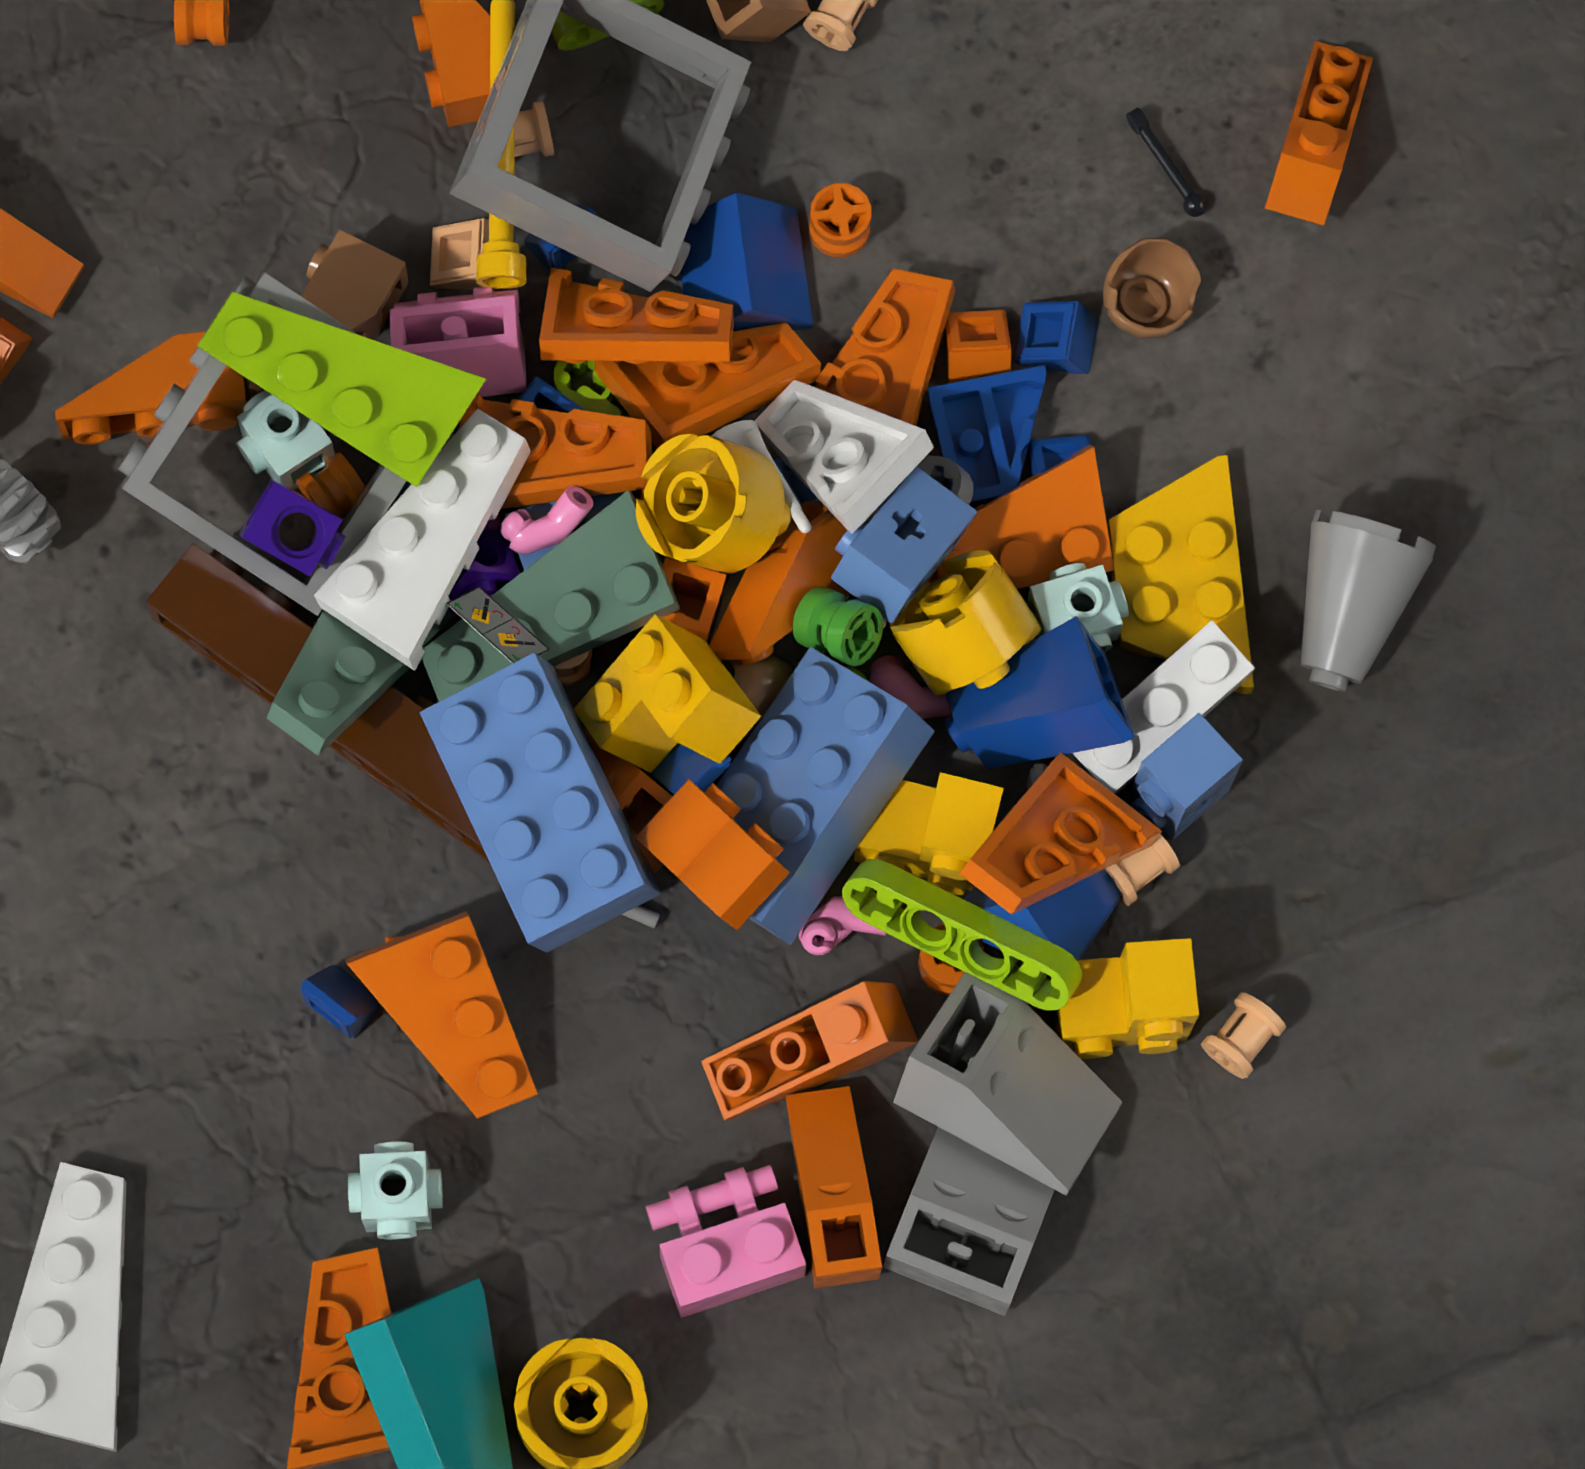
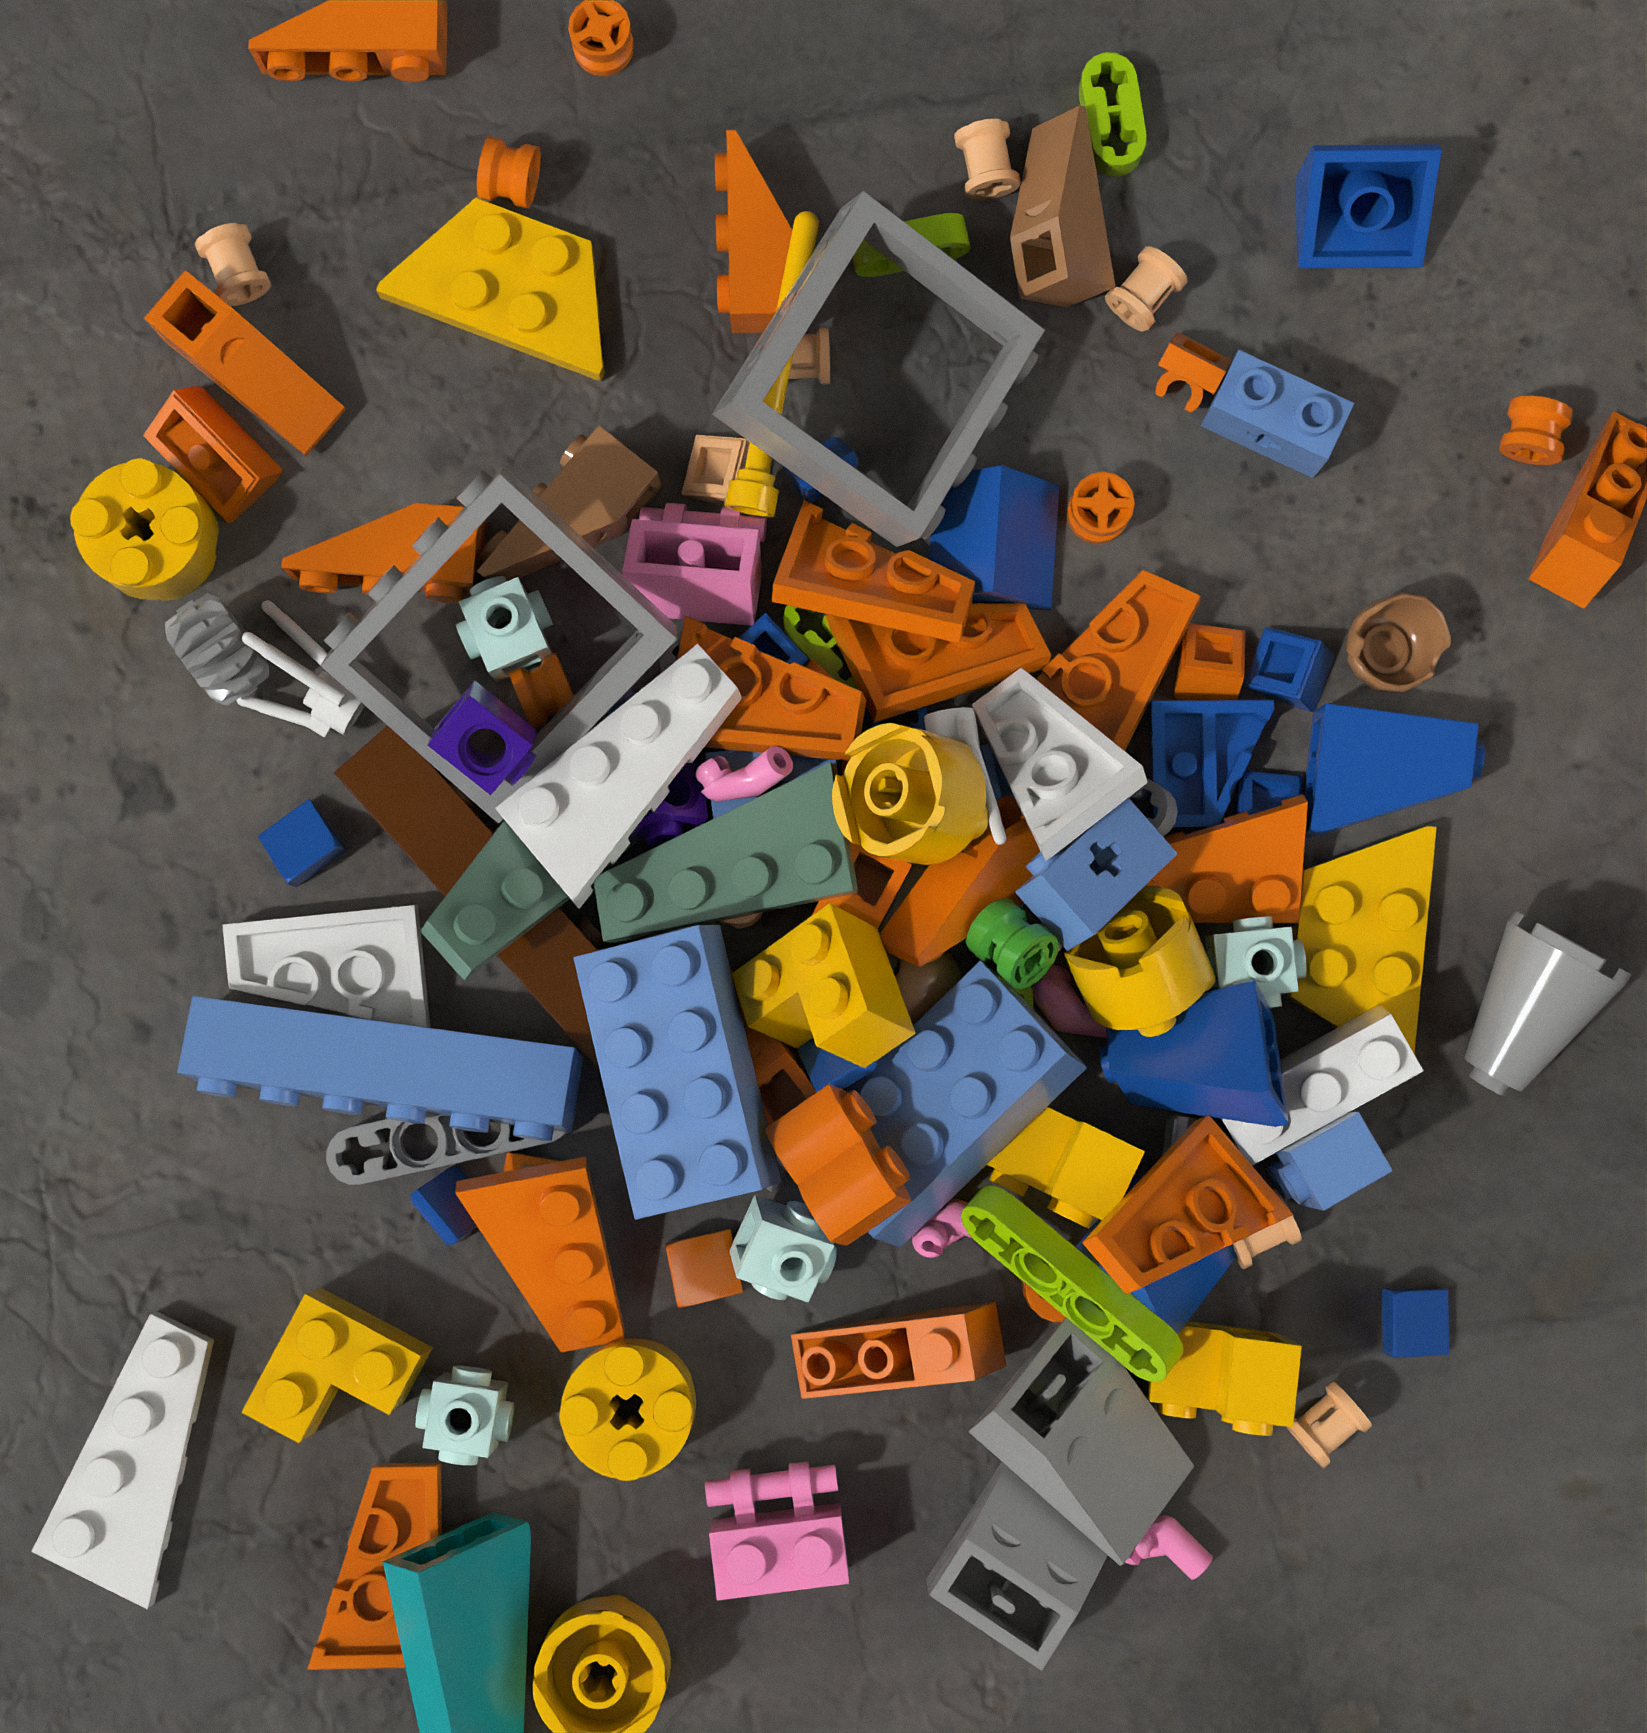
camera: 15 degrees right, 10 degrees up
(122, 684) = (301, 843): none -> blue slope
(126, 538) = (330, 701): none -> white plant
(178, 789) = (335, 961): none -> white wing
(220, 121) = (507, 284): none -> yellow wing
(243, 1157) = (331, 1349): none -> yellow brick
(246, 872) = (382, 1066): none -> medium blue brick
(330, 943) = (452, 1148): none -> light grey beam
(355, 387) = (577, 613): lime wing -> none
(496, 625) = (671, 879): light grey sticker -> none
(544, 1115) = (628, 1446): none -> yellow brick
(601, 1011) = (702, 1268): none -> orange slope
(656, 964) = (782, 1250): none -> light aqua brick
(833, 1188) = (893, 1499): orange slope -> none
(902, 71) = (1195, 365): none -> orange tile
(990, 101) = (1277, 414): none -> medium blue brick
(1109, 1179) = (1172, 1540): none -> bright pink arm
(1163, 406) = (1383, 763): none -> blue slope
(1194, 203) = (1456, 557): black hinge -> none
(1242, 70) = (1536, 430): none -> orange wheel
(1309, 924) = (1415, 1322): none -> blue slope

